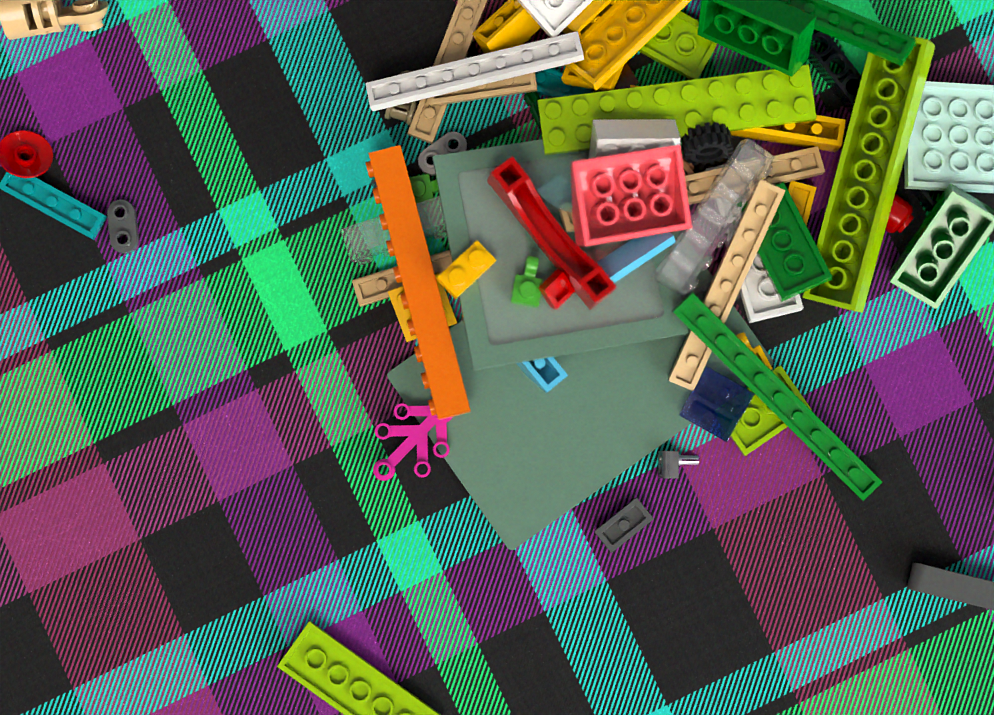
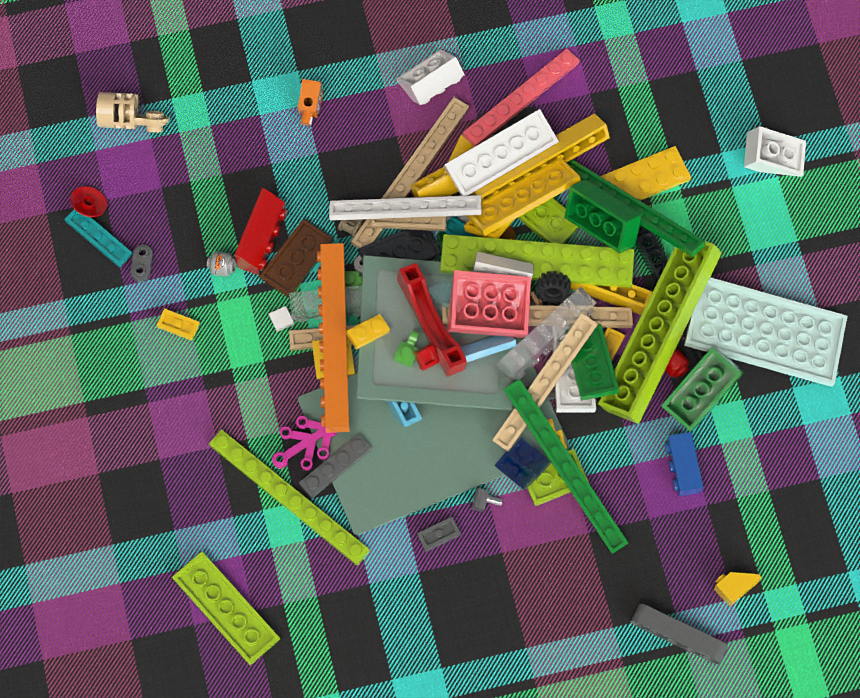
camera: 15 degrees right, 15 degrees down
(196, 305) = (178, 324): none -> yellow plate
(234, 205) = (221, 264): none -> light grey head
(278, 148) = (260, 232): none -> red slope
(336, 172) = (295, 258): none -> reddish brown tile
(336, 265) = (281, 319): none -> white tile
(408, 516) = (289, 497): none -> lime plate
(461, 462) = (335, 466): none -> dark grey plate
(482, 125) = (404, 245): none -> black tile
(934, 354) = (684, 464): none -> blue brick

